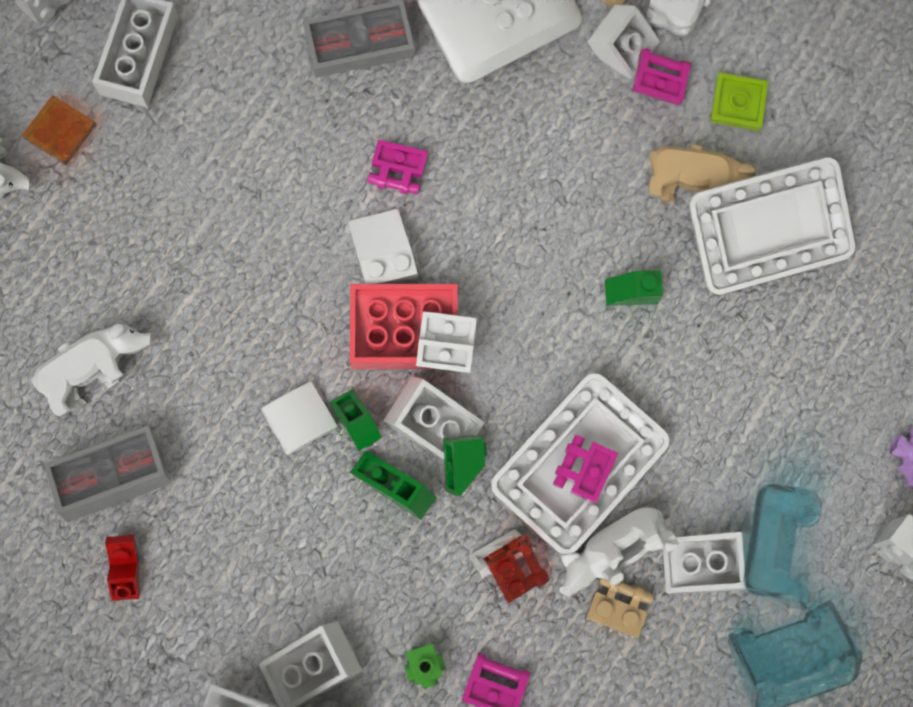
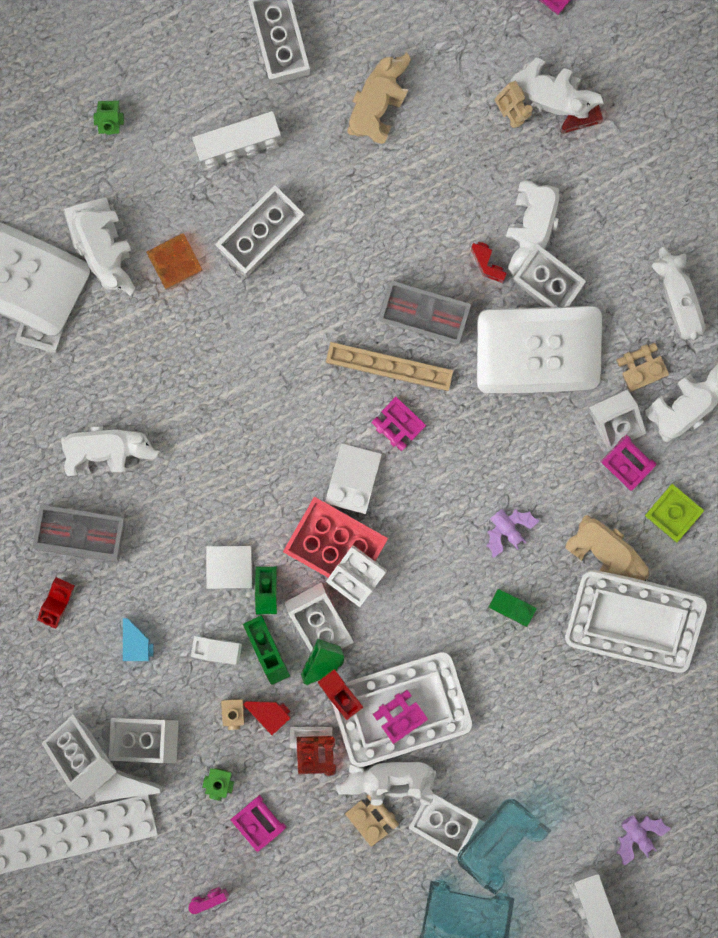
camera: 35 degrees right, 10 degrees up
(240, 561) = (135, 643): none -> medium azure slope
(336, 516) = (216, 650): none -> white slope
(353, 114) = (389, 366): none -> tan plate
(395, 576) = (233, 713): none -> tan brick
(436, 553) = (269, 714): none -> red slope
(504, 481) = (340, 694): none -> red slope
(574, 209) = (506, 526): none -> lavender animal

